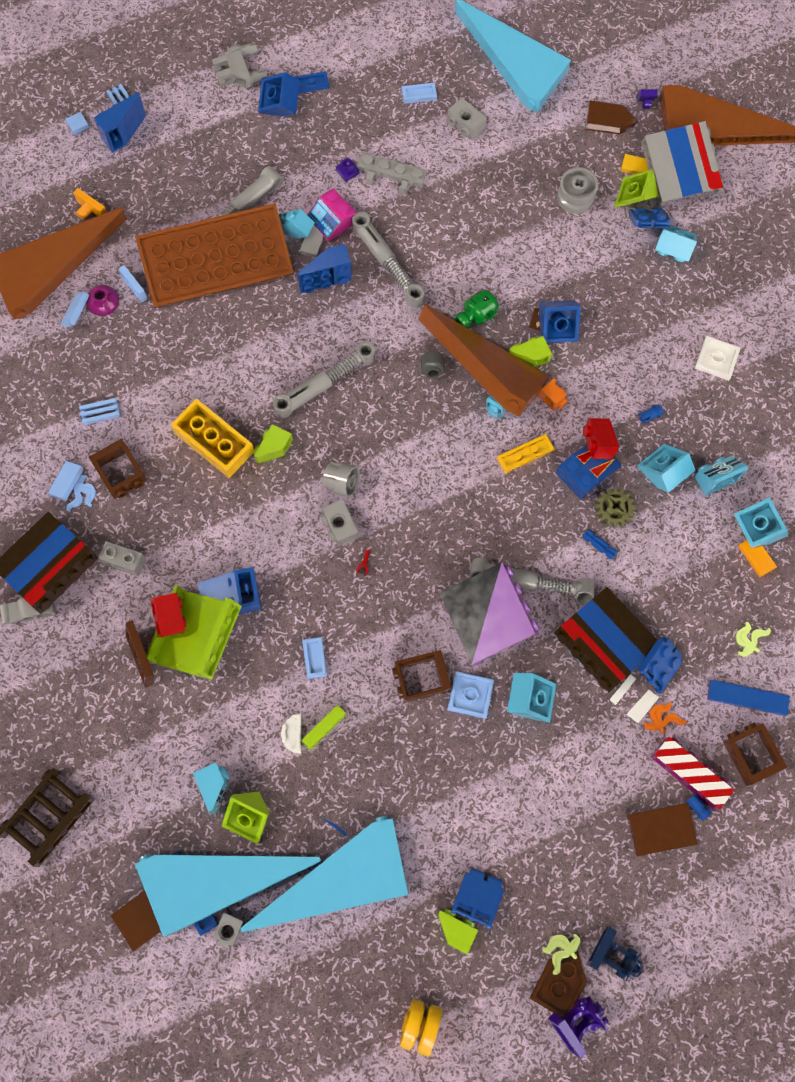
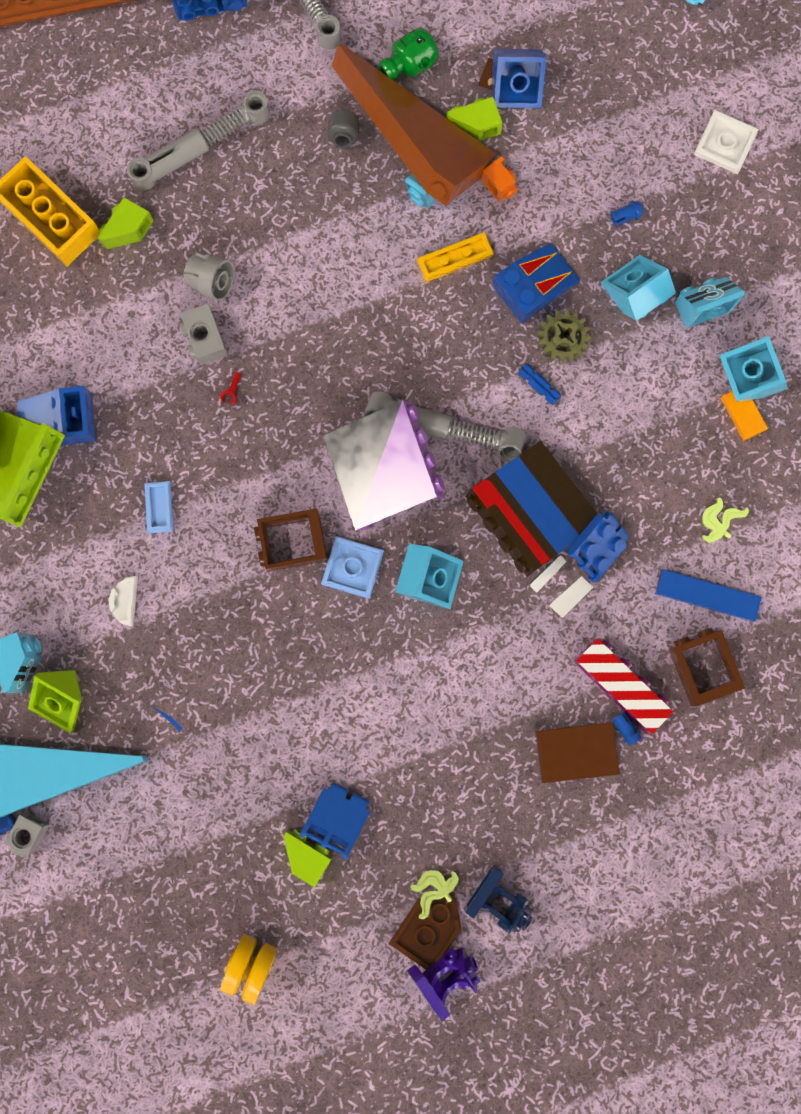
camera: 10 degrees right, 10 degrees up
(323, 727) = (163, 596): lime piece -> none
(355, 875) = (188, 780): medium azure slope -> none
(600, 438) = (554, 242): red brick -> none
(655, 715) = (586, 611): orange piece -> none

